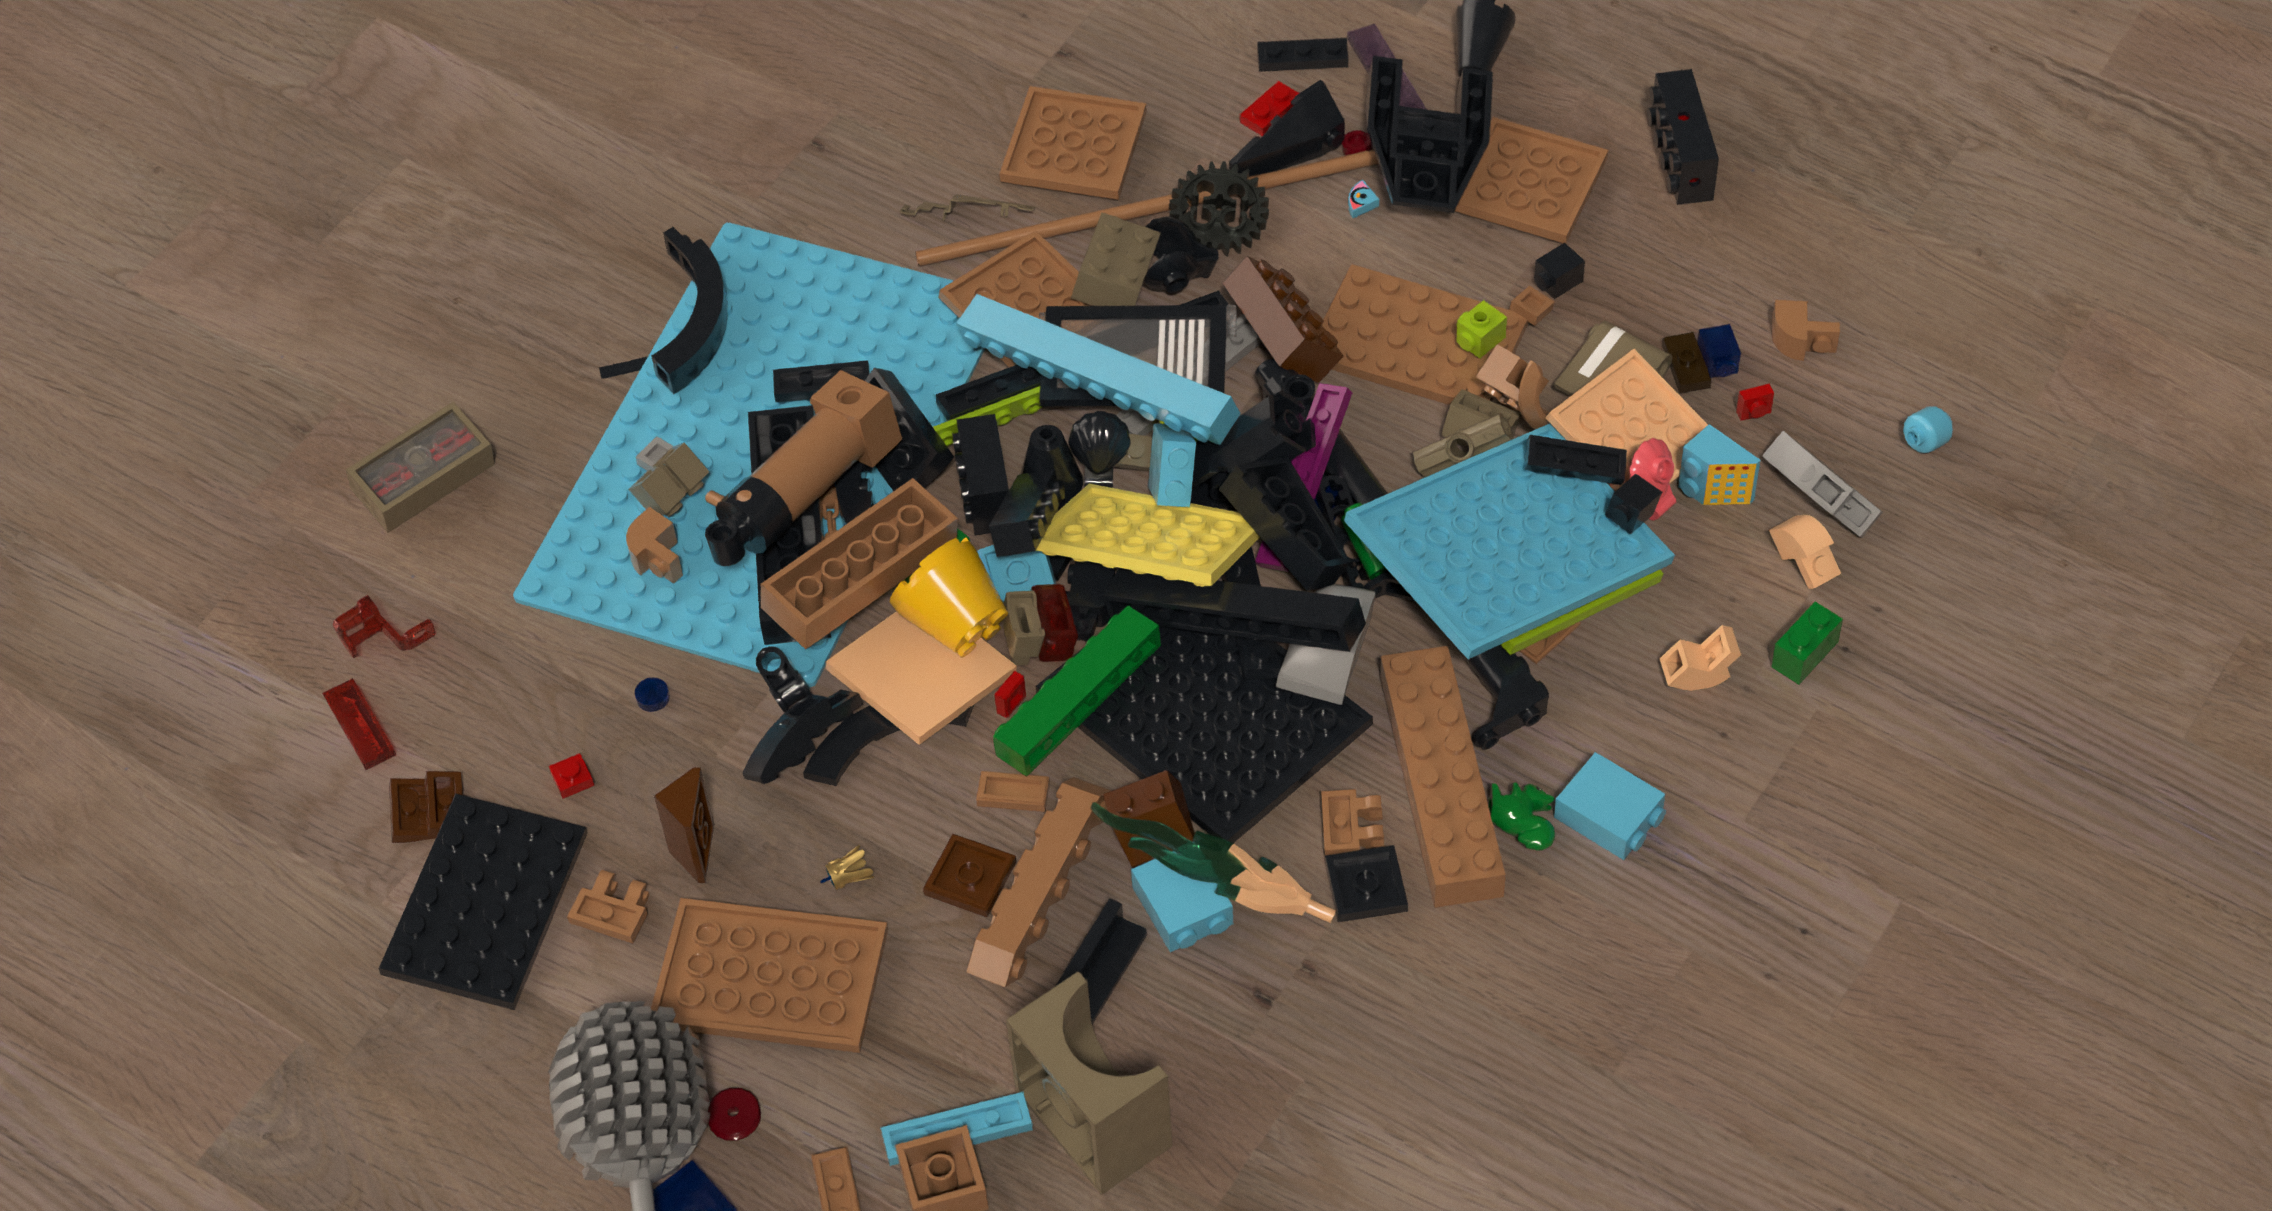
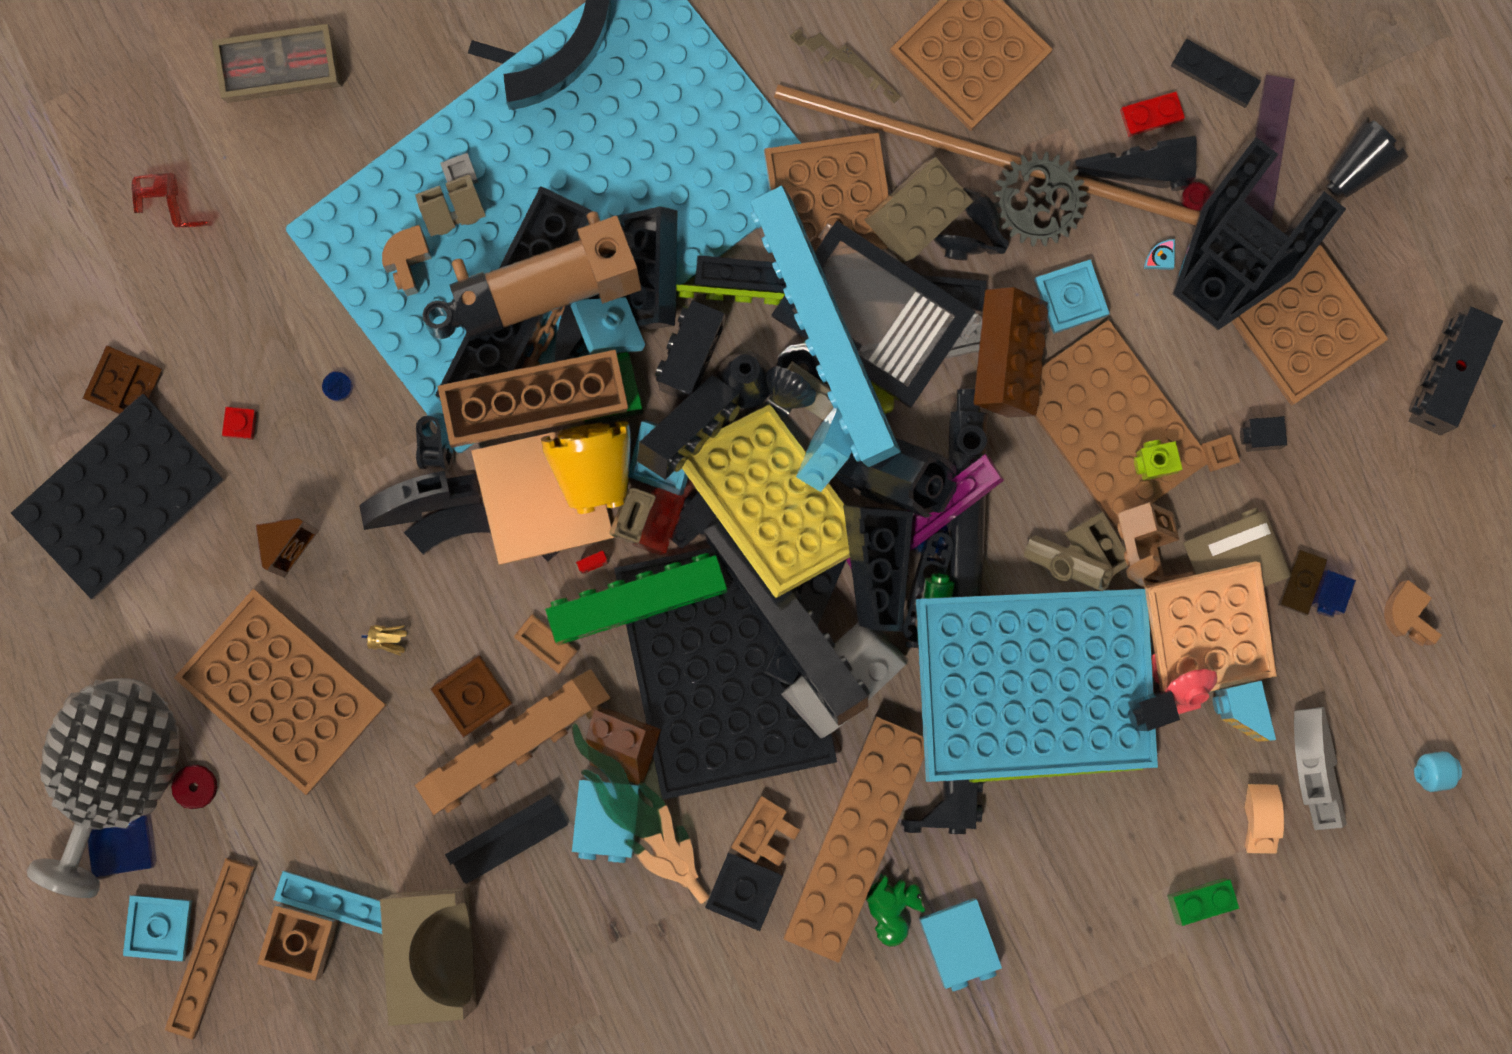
camera: 25 degrees right, 30 degrees up
(359, 724) = (113, 275): clear red tile -> none
(608, 915) = (197, 567): medium nougat plate -> none
(803, 382) = (624, 176): black plate -> none
(883, 481) = (608, 326): none -> medium azure plate
(1309, 262) = (1072, 296): none -> medium azure plate
(1575, 459) = (1137, 644): black plate -> none
(1701, 665) = (1112, 867): light nougat brick -> none
(1755, 402) = (1325, 660): red plate -> none

